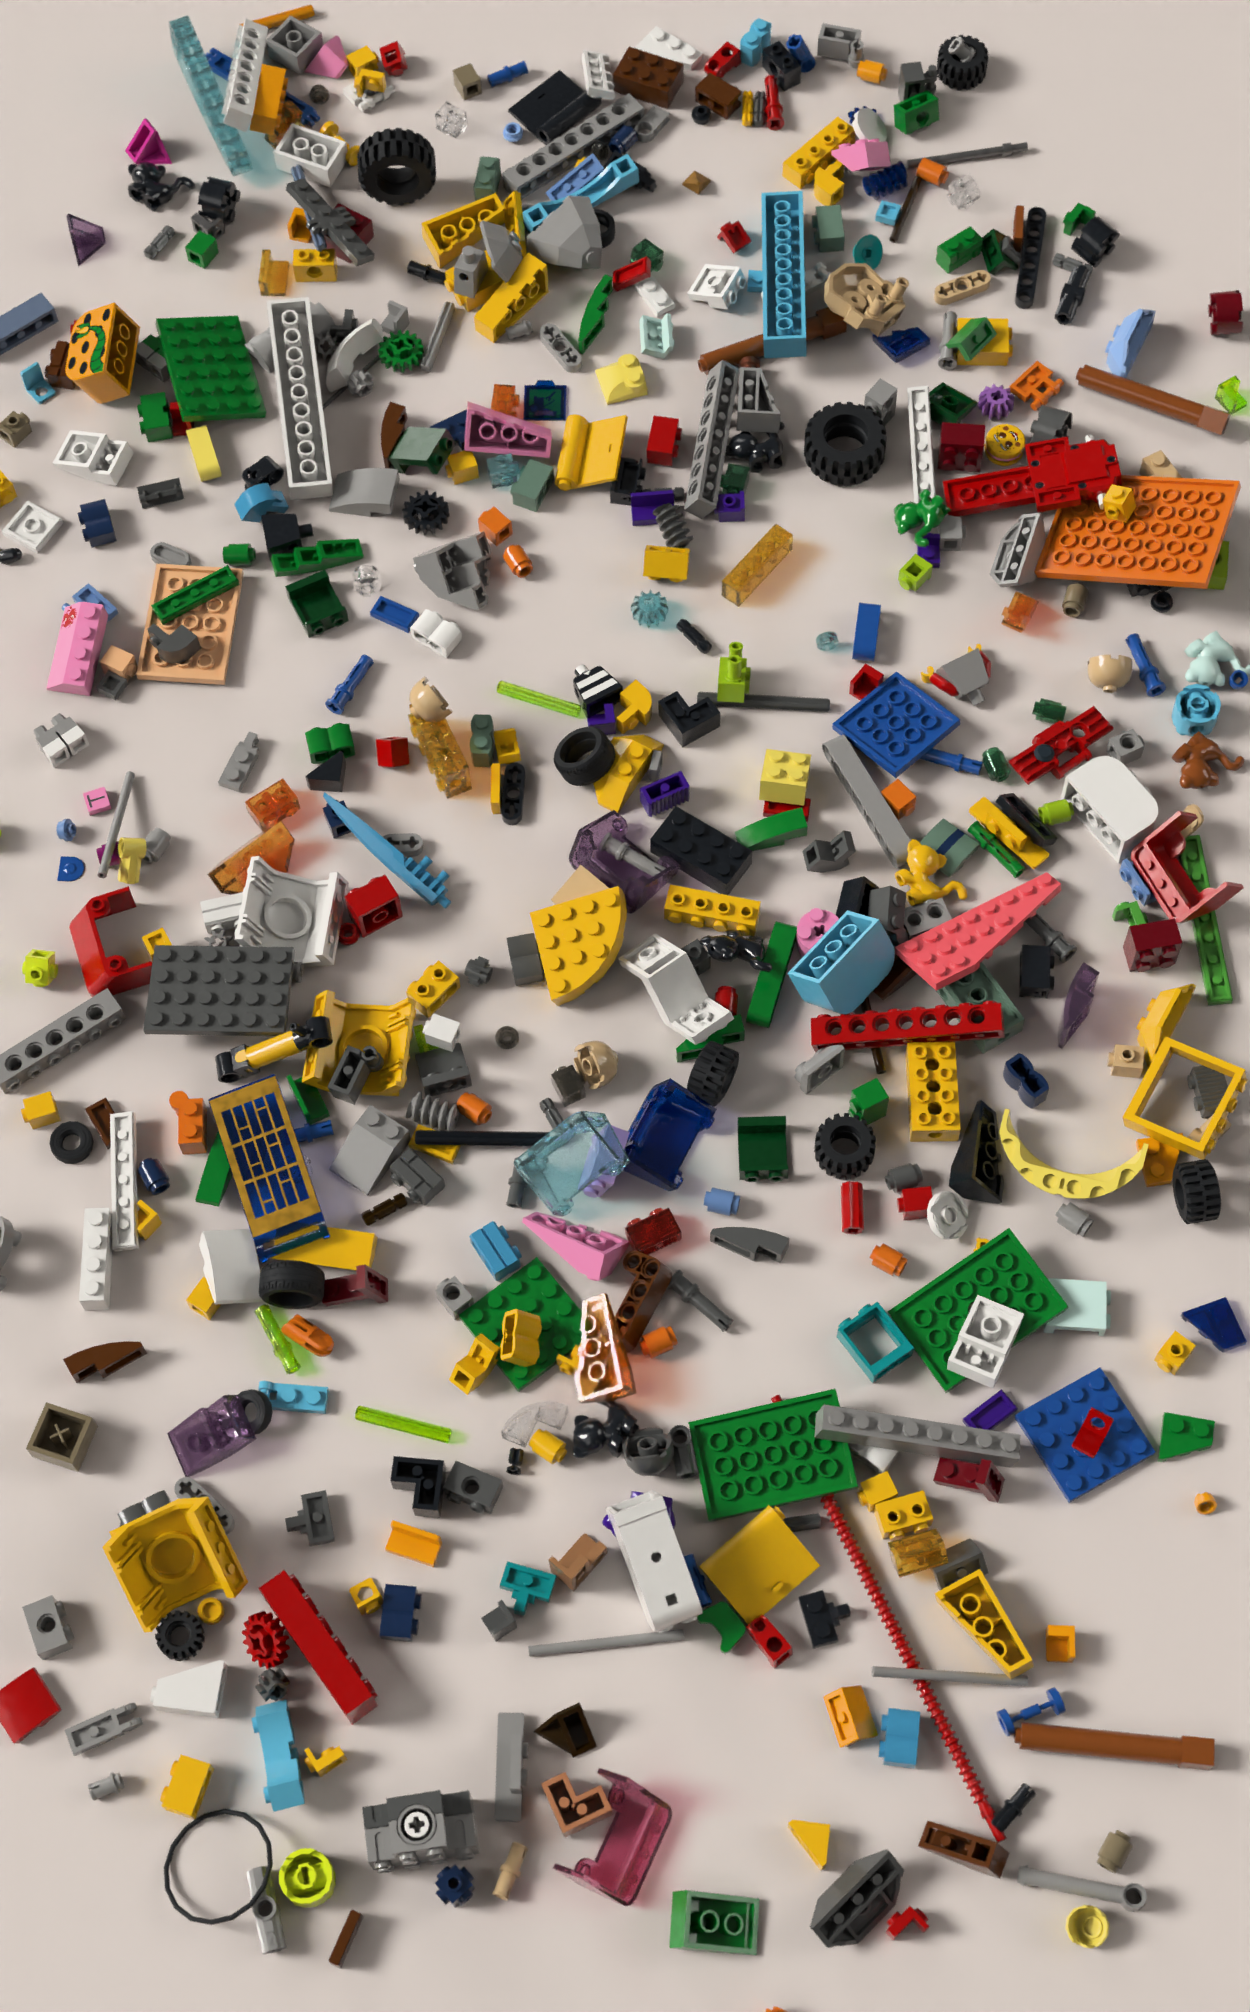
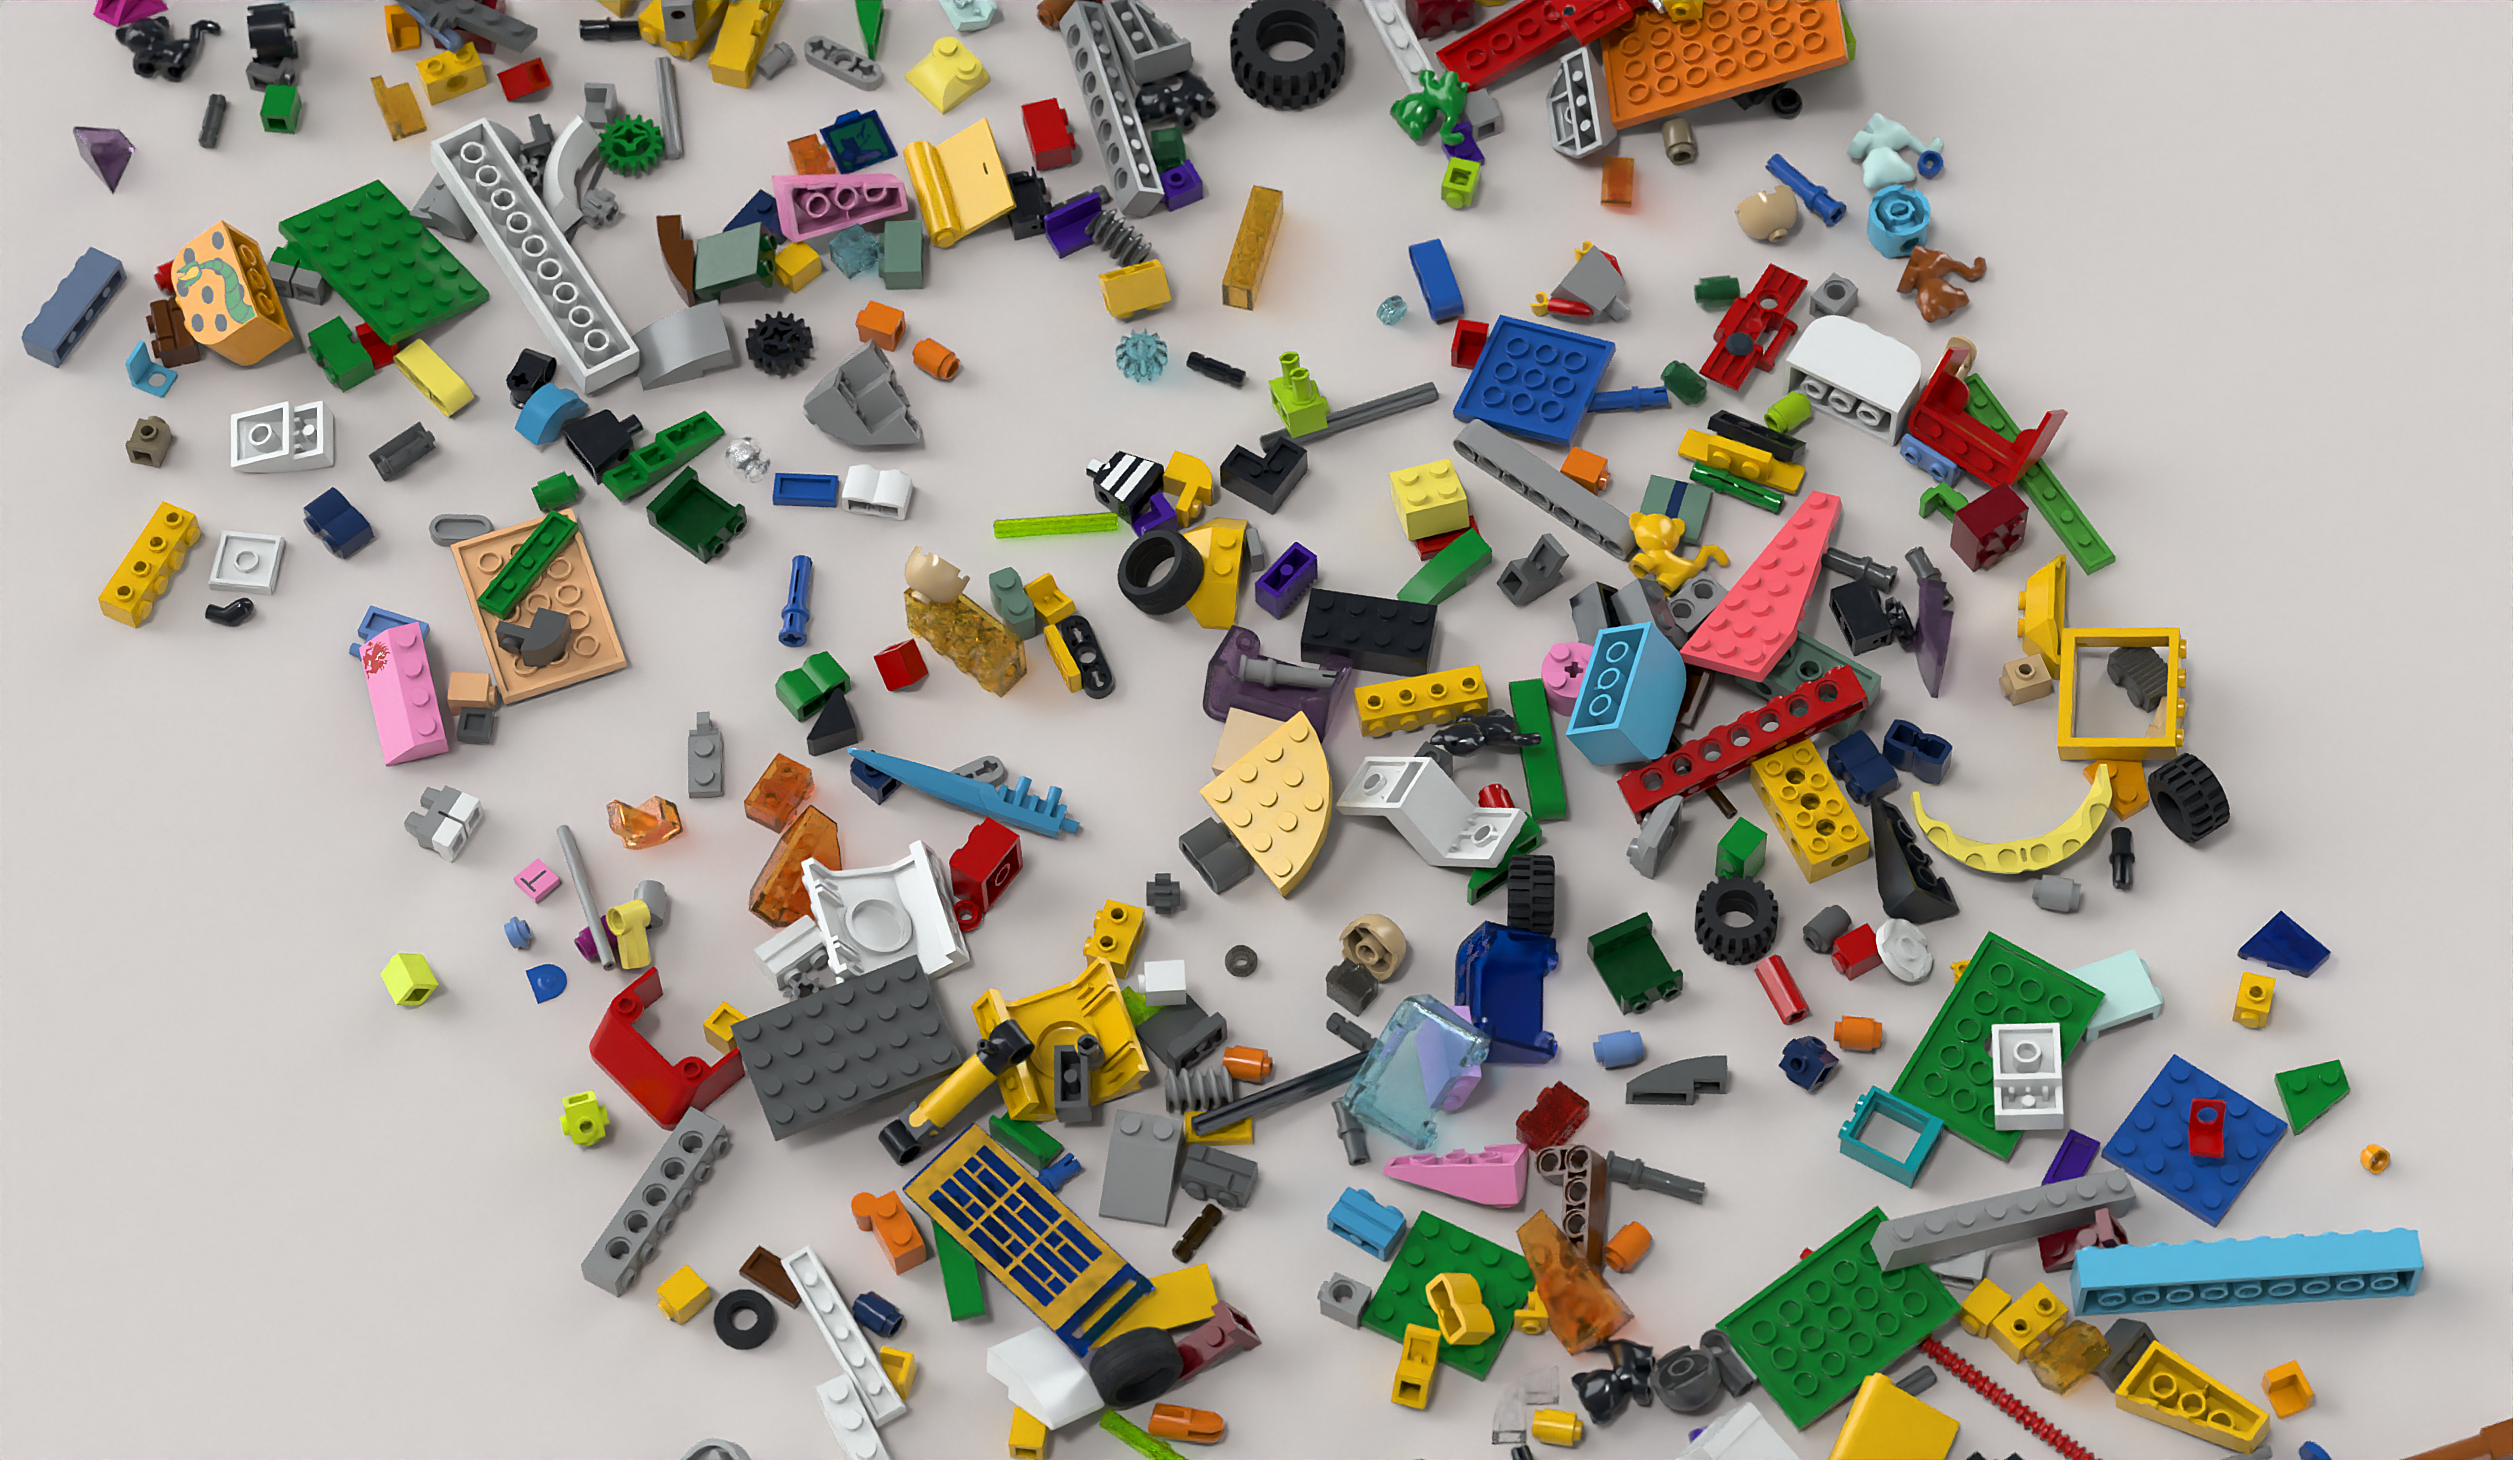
camera: 25 degrees left, 5 degrees down
(178, 792) = (646, 825): none -> clear orange brick
(358, 284) = (524, 79): none -> red panel
(843, 1266) = (1808, 1062): none -> dark blue brick
(983, 1076) = (1861, 767): none -> dark blue brick
(1059, 985) = (1900, 621): none -> black gear
(1072, 1547) = (2245, 1272): none -> medium azure brick
(1096, 960) = (1924, 569): none -> dark grey pin
(1132, 1213) = (2121, 857): none -> black axle

